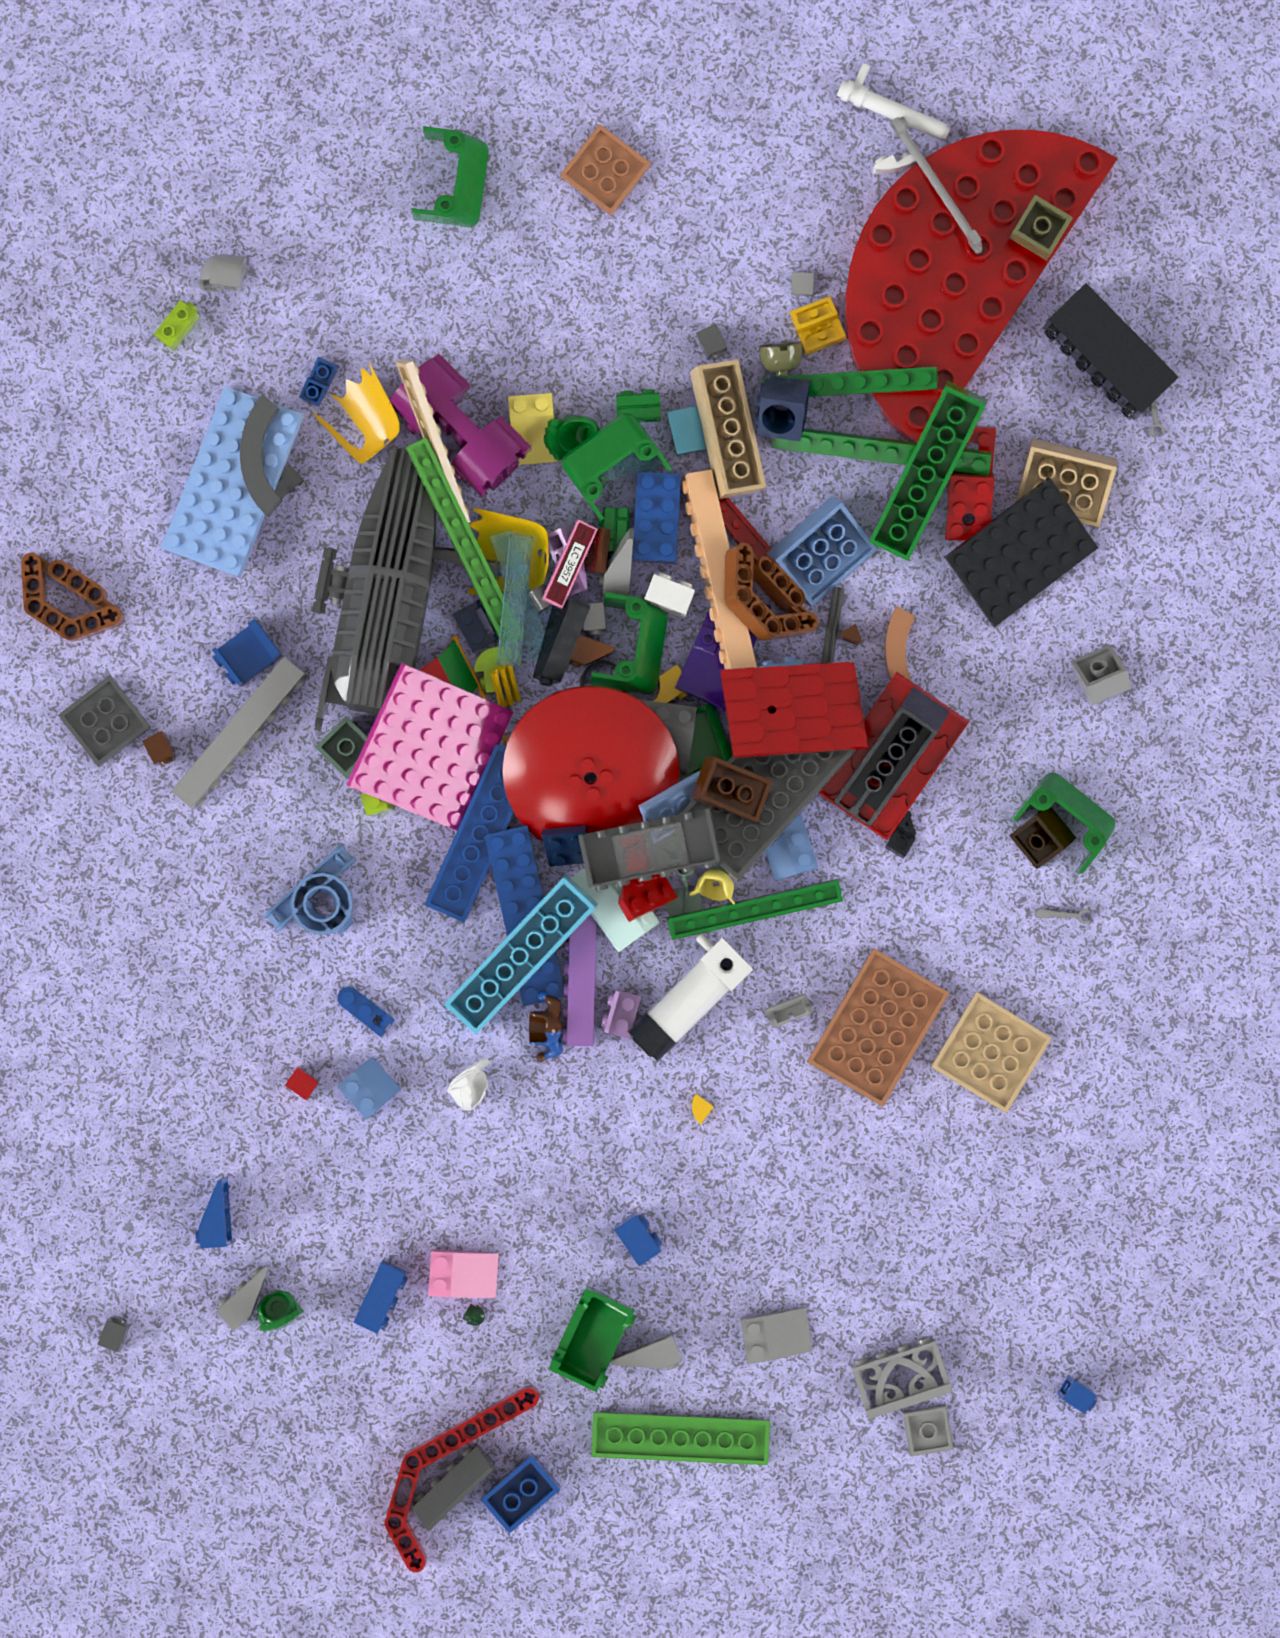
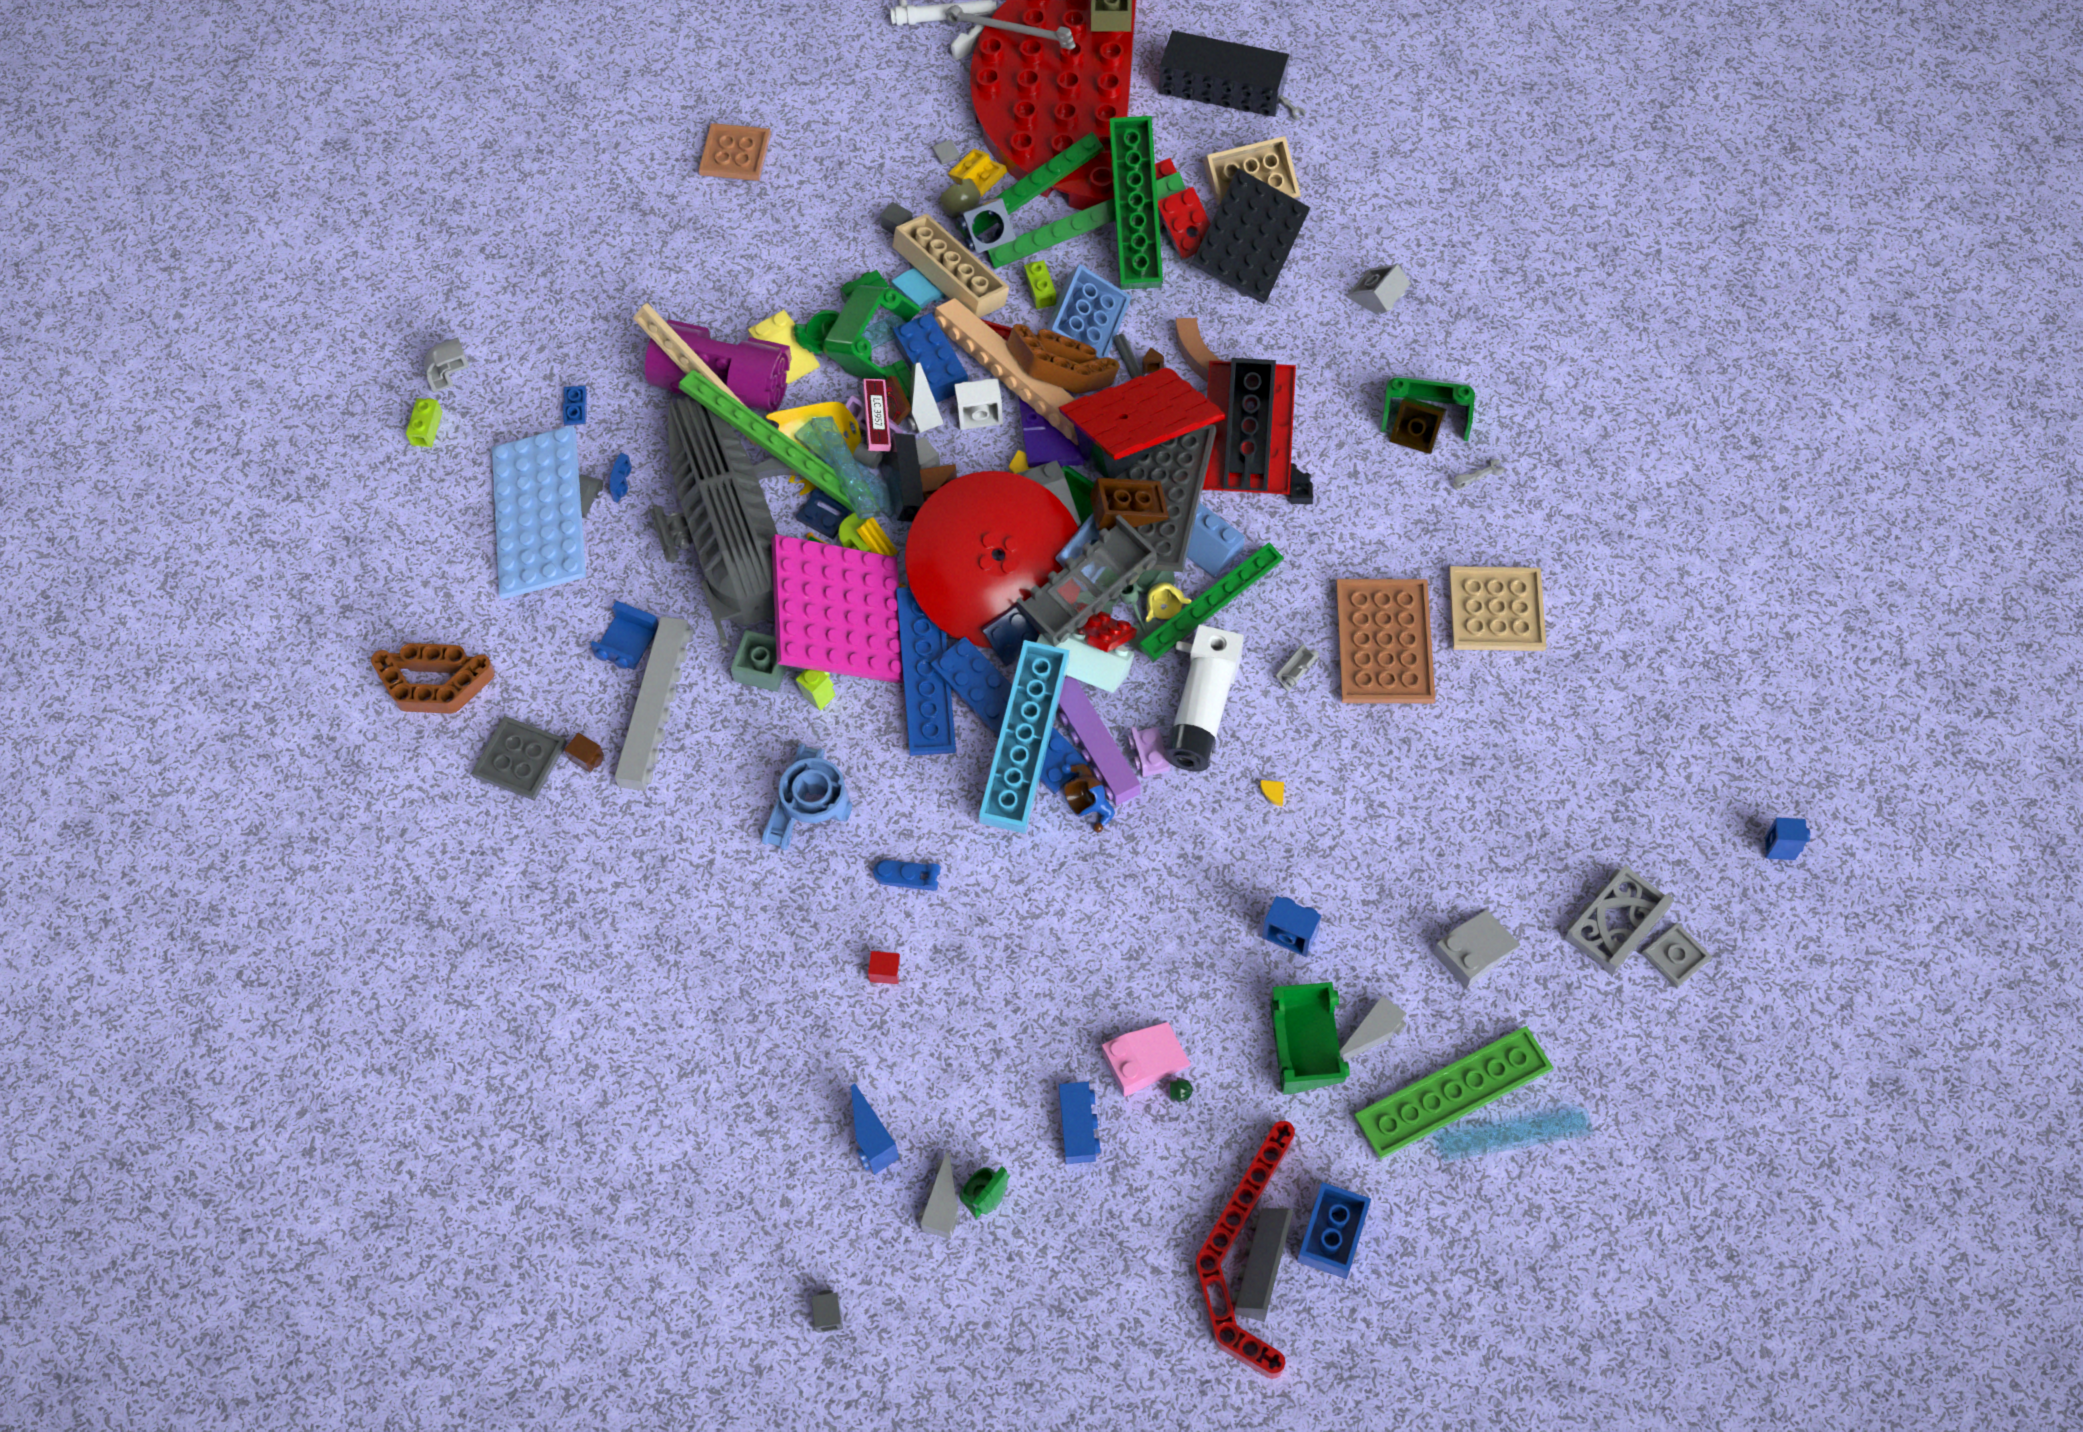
camera: 30 degrees left, 25 degrees down
(252, 455) = (544, 475): dark grey tile -> none
(314, 493) = (618, 483): none -> blue slope
(369, 1088) = (950, 940): medium blue slope -> none
(372, 414) = (632, 401): yellow piece -> none
(466, 204) = (622, 229): green windscreen -> none
(470, 1086) = (1046, 879): white hair -> none
(643, 672) = (959, 425): green windscreen -> none
(706, 1496) = (1515, 1134): none -> clear light blue plate
(800, 491) = (1040, 284): none -> lime brick

